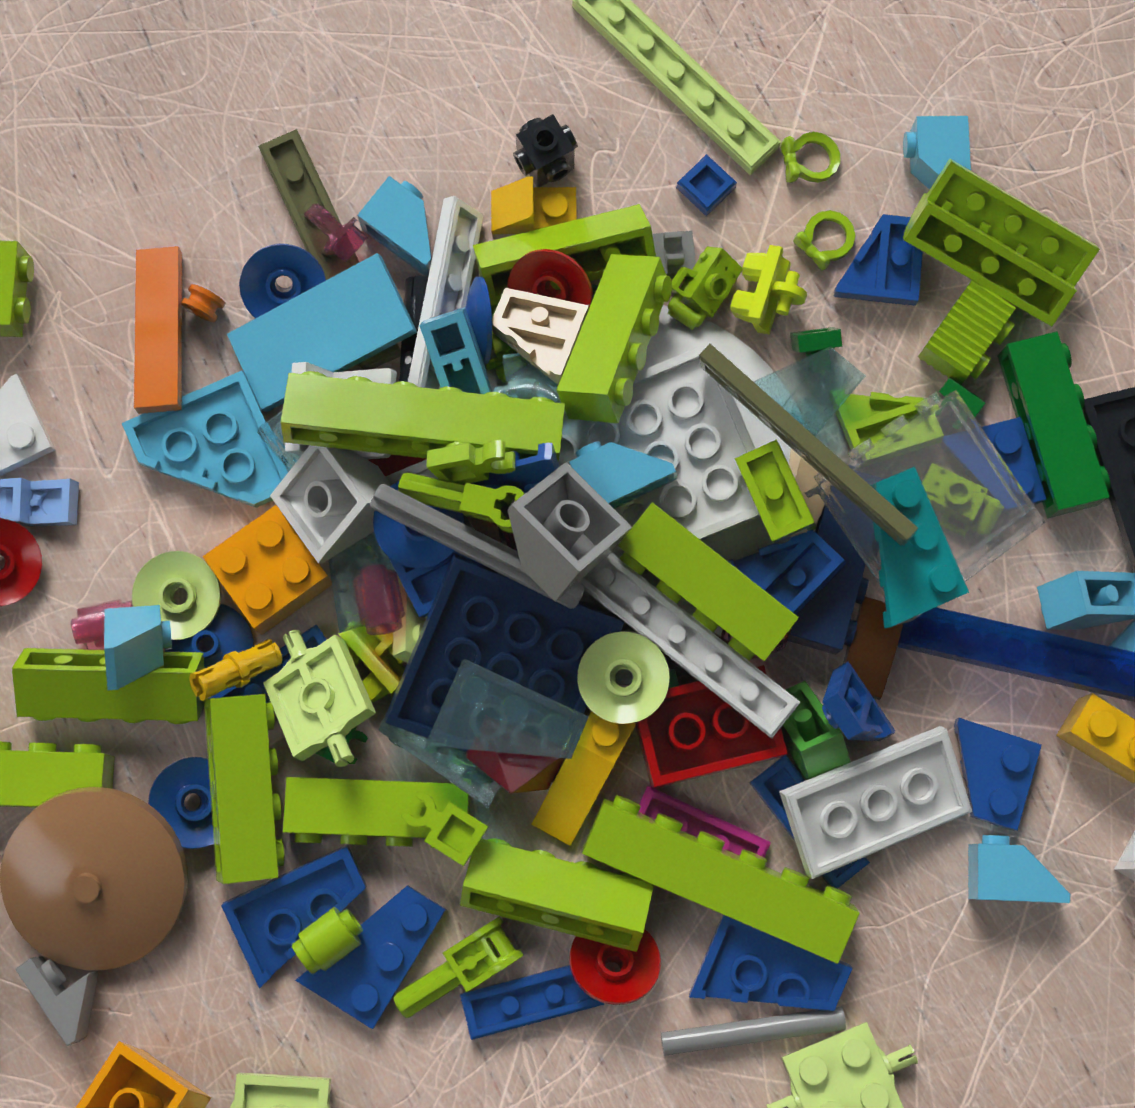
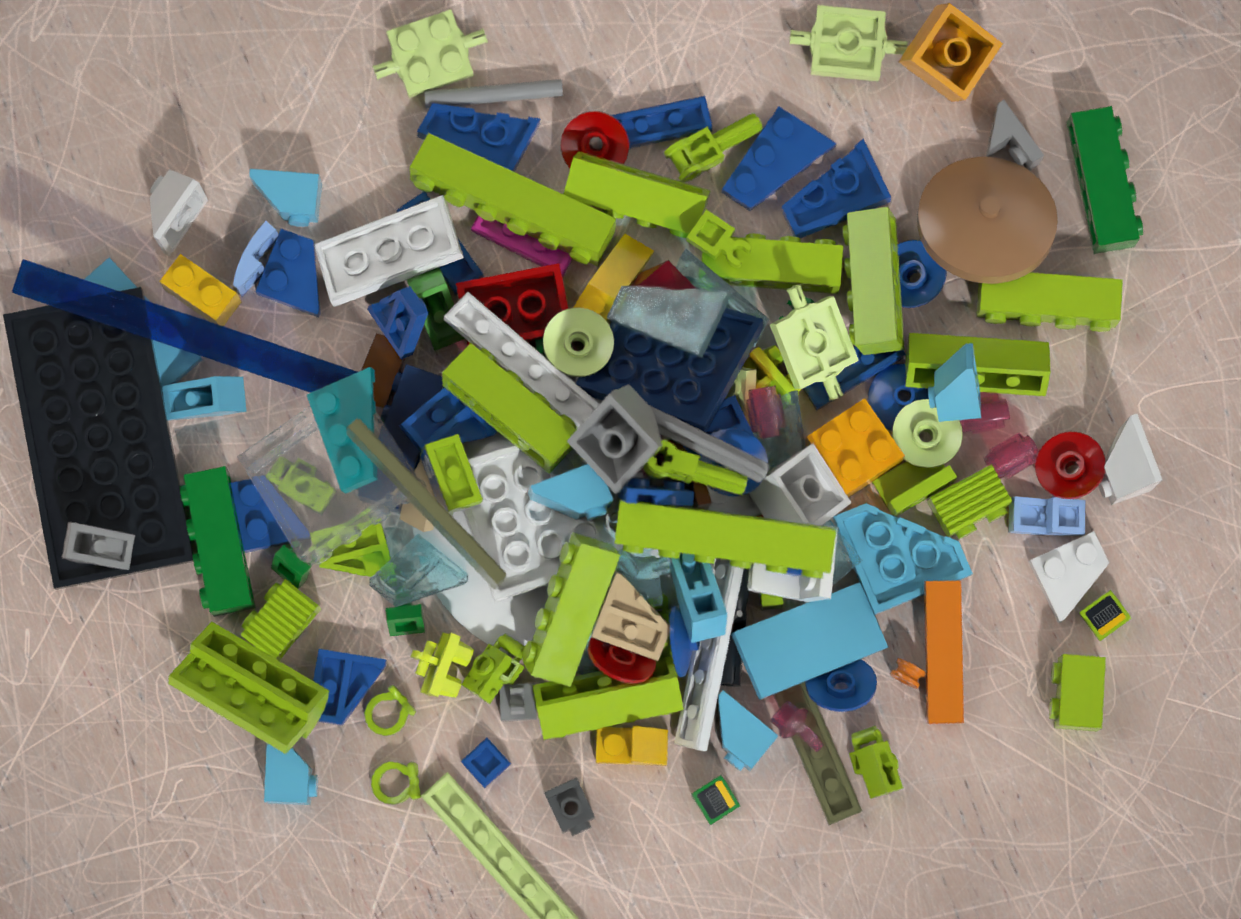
camera: 175 degrees left, 0 degrees up
(70, 571) = (1012, 455): none -> clear pink brick
(123, 512) = (970, 502): none -> lime brick
(192, 528) = (911, 485): none -> lime panel
(235, 669) = (878, 367): yellow pin -> none
(241, 197) = (875, 762): none -> lime piece
(327, 940) = (810, 167): lime brick -> none
(433, 154) = (715, 800): none -> slope
(465, 464) = (697, 497): lime plate -> none
(537, 157) = (617, 805): black brick -> none
(608, 146) = (570, 792): none -> dark grey brick
(1053, 777) = (249, 268): none -> light blue slope

